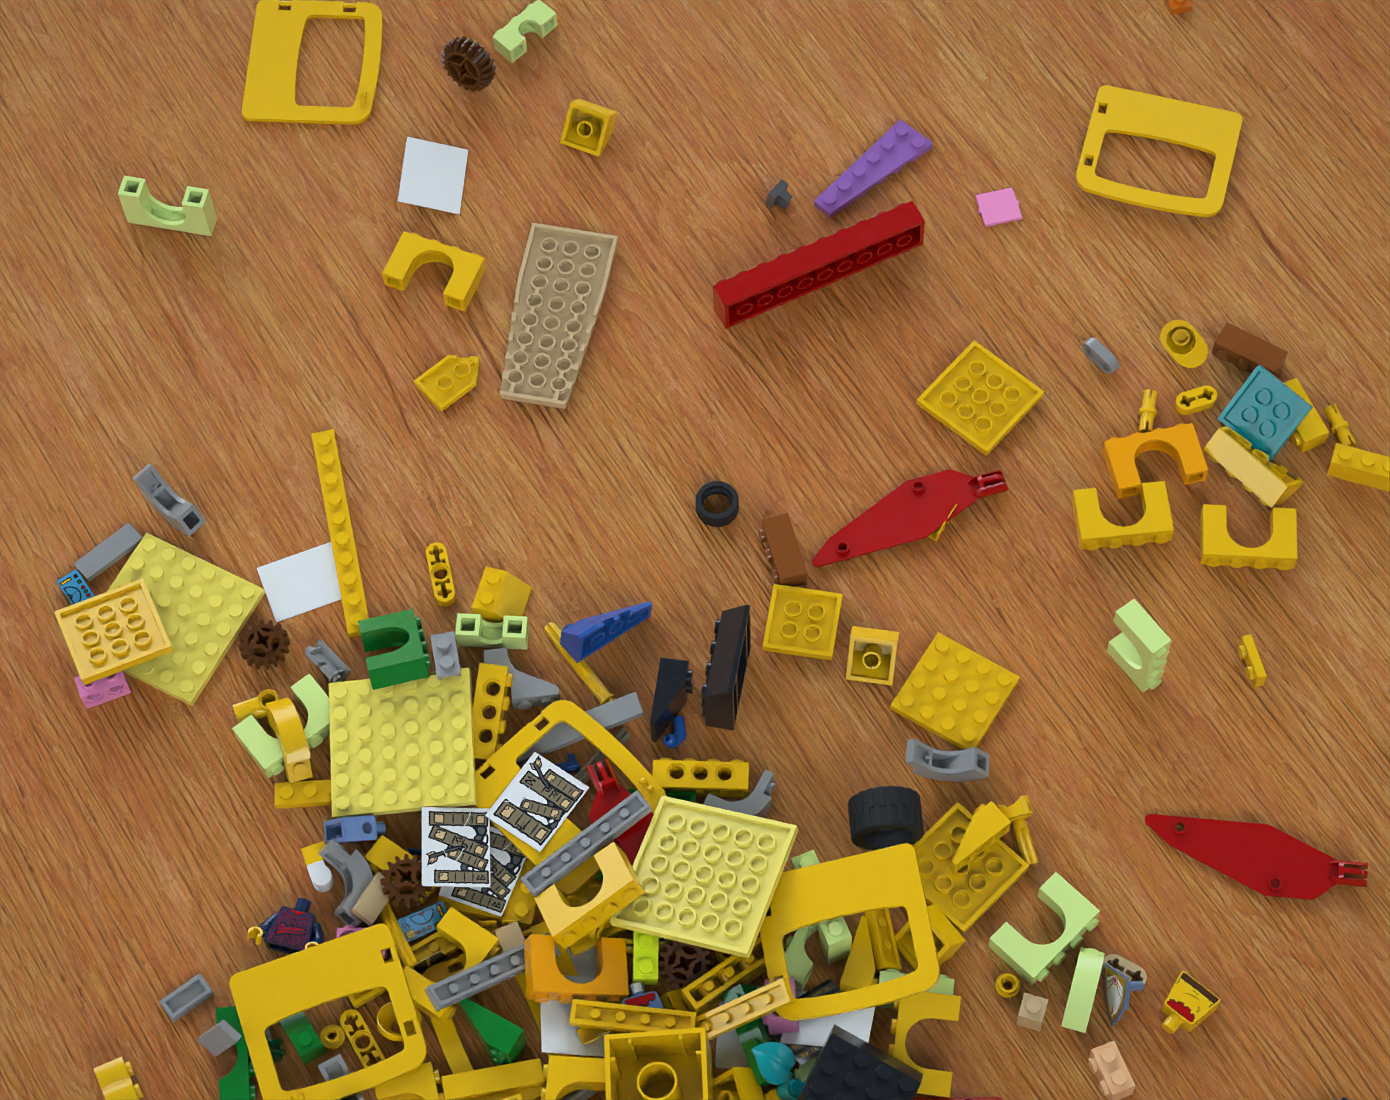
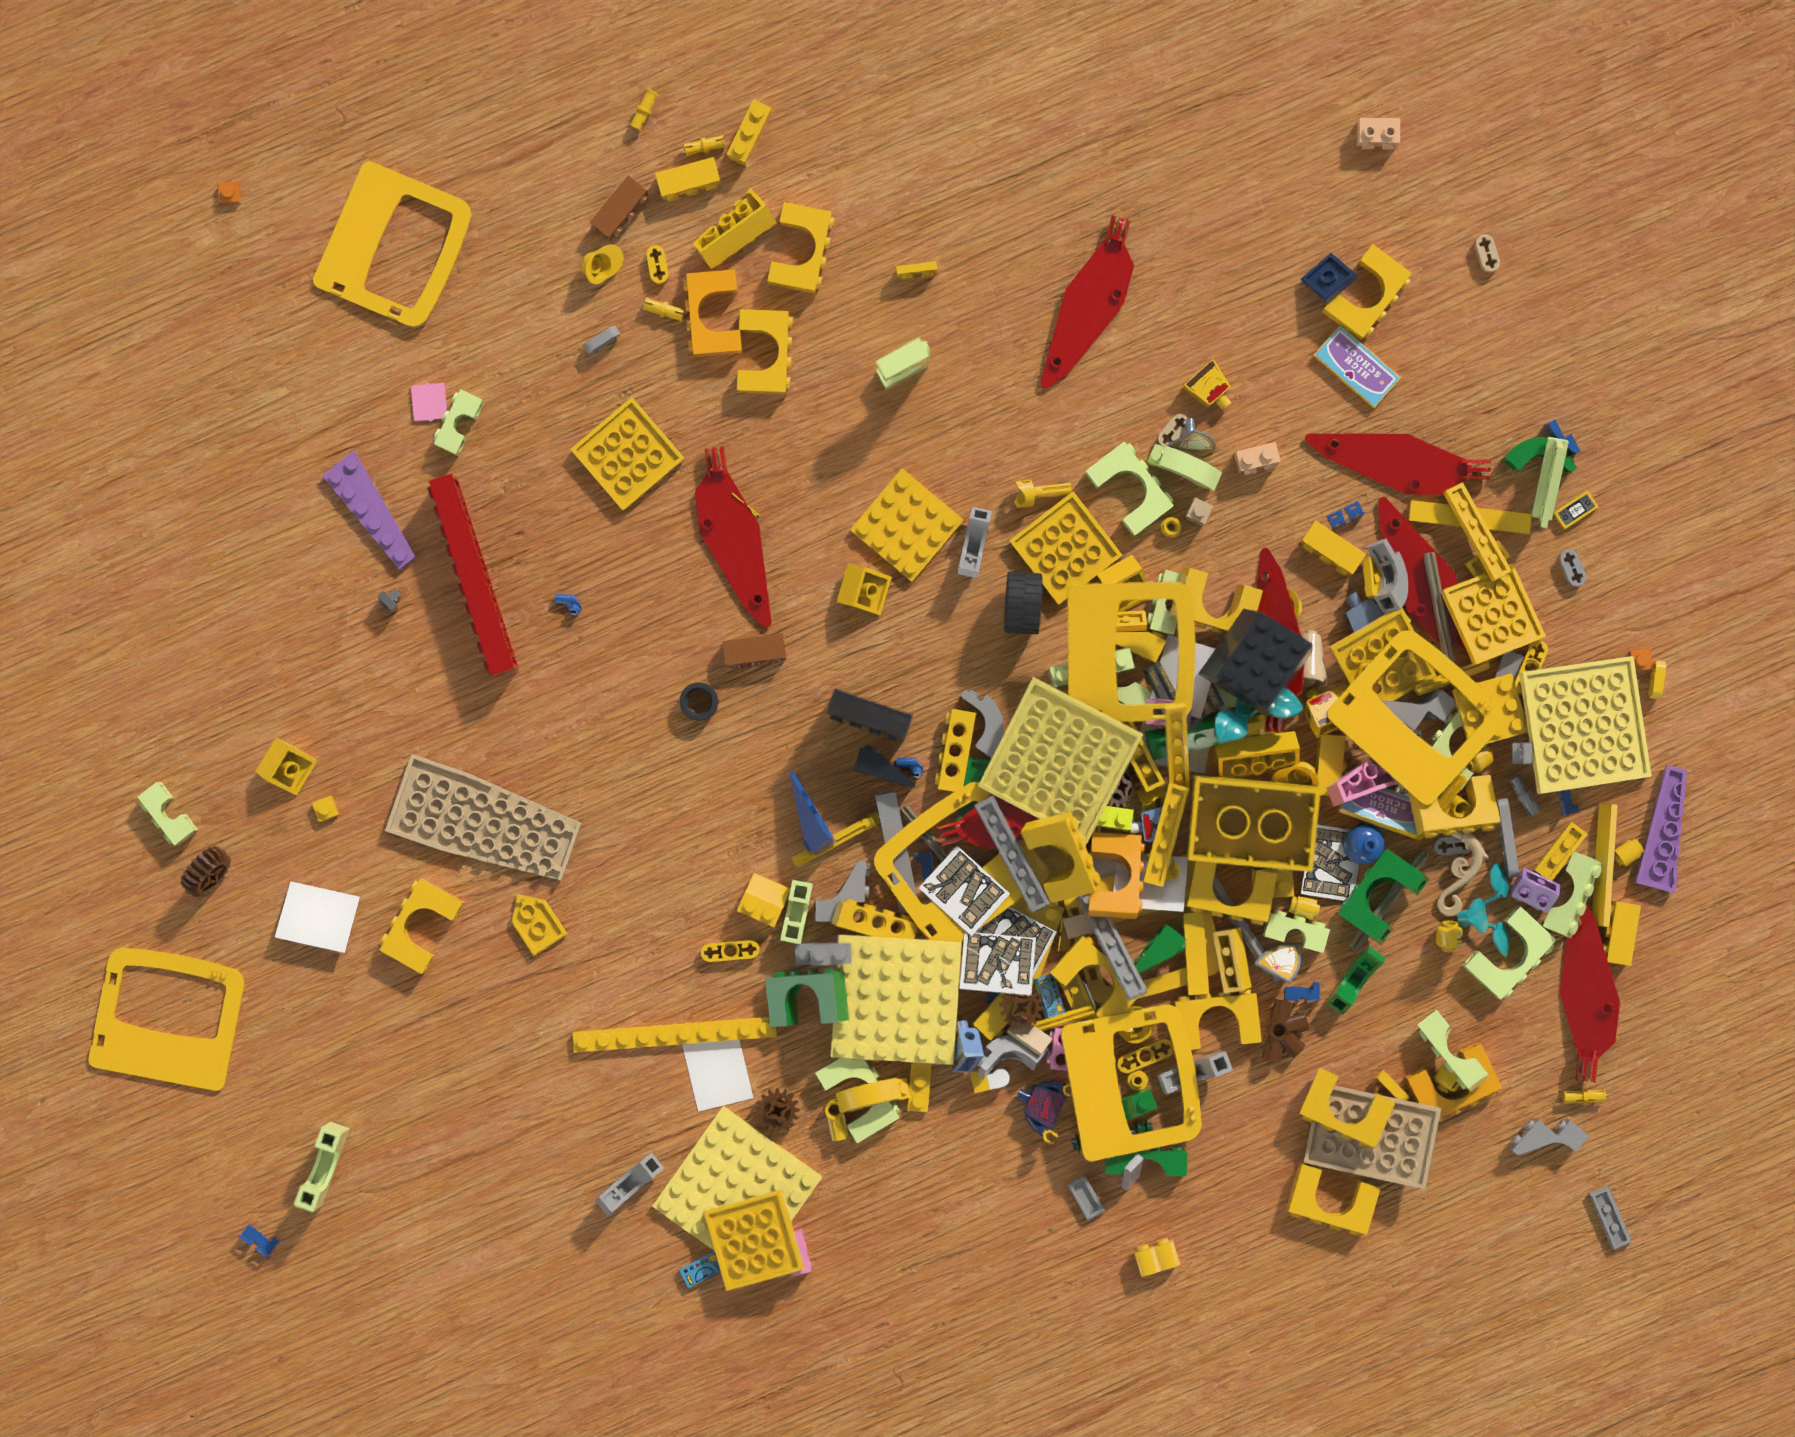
camera: 90 degrees left, 25 degrees up
(90, 169) = (257, 1237): none -> blue piece
(108, 552) = (665, 1240): light grey tile -> none
(328, 662) = (809, 1052): light grey hinge -> none
(549, 169) = (325, 808): none -> yellow plate
(802, 622) = (823, 643): yellow plate -> none
(807, 365) = (570, 601): none -> blue arm
(965, 226) = (463, 406): none -> yellowish green arch
(983, 830) = (1042, 524): yellow slope -> none
(1265, 412) = (686, 208): teal plate -> none
(1364, 363) = (644, 109): none -> yellow pin

